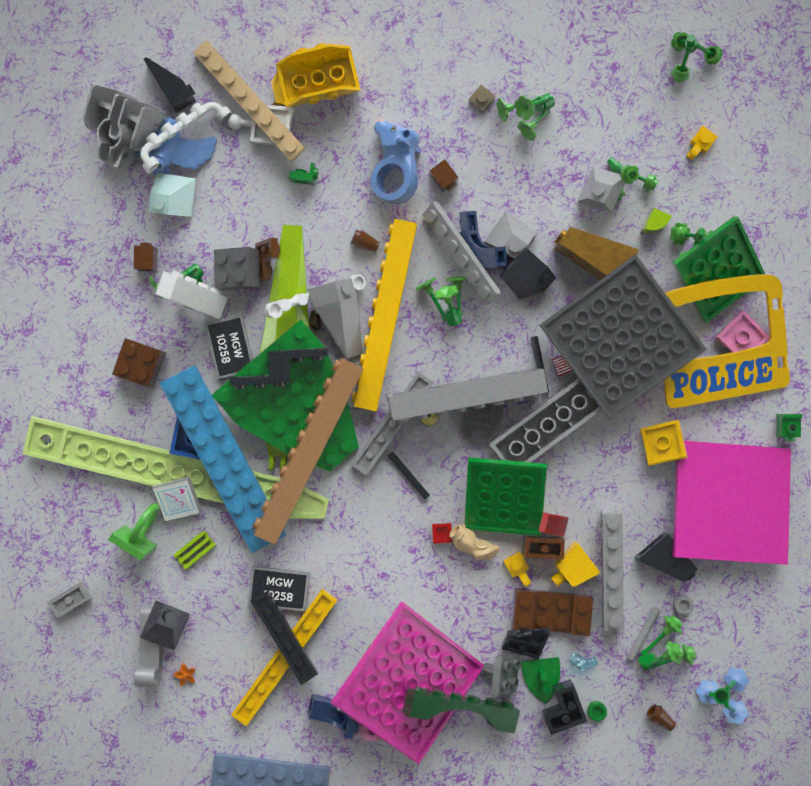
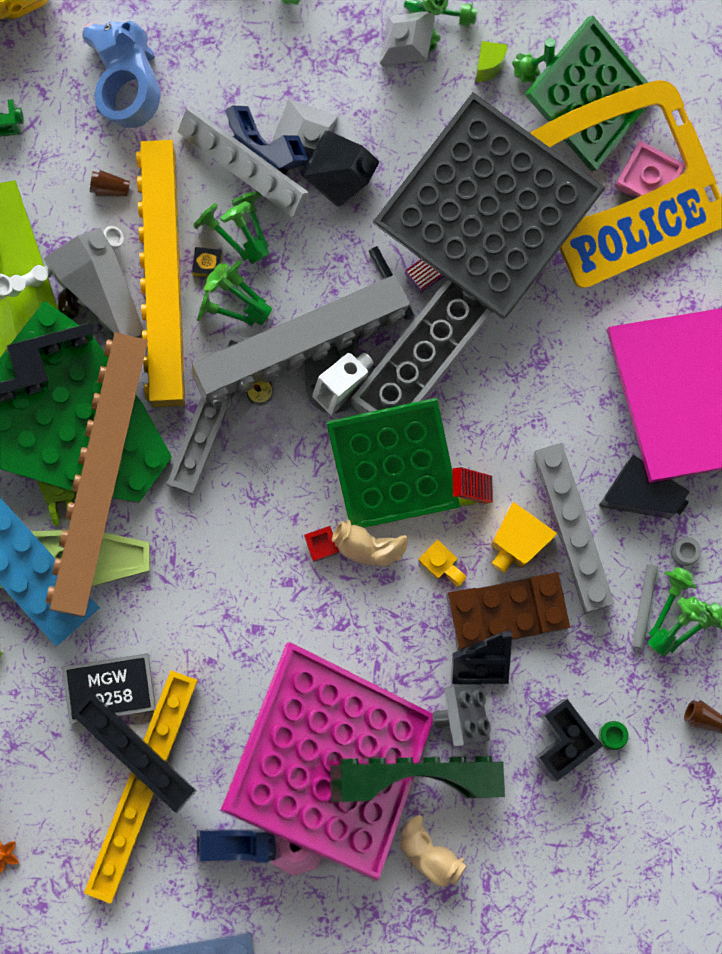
camera: 25 degrees left, 10 degrees down
(408, 475) = (253, 479): black bar -> none
(417, 315) = (205, 261): none -> black tile
(421, 338) = (221, 277): none -> plant
(444, 176) = (193, 75): reddish brown brick -> none
(456, 758) = (435, 863): none -> tan animal
(482, 432) = (341, 381): none -> white torso
(541, 675) = (520, 709): green shield -> none
(543, 547) = (468, 521): reddish brown brick -> none
(582, 663) = (571, 672): clear light blue arm -> none
(593, 253) = (412, 113): pearl gold slope -> none
(663, 443) = (589, 337): yellow tile -> none

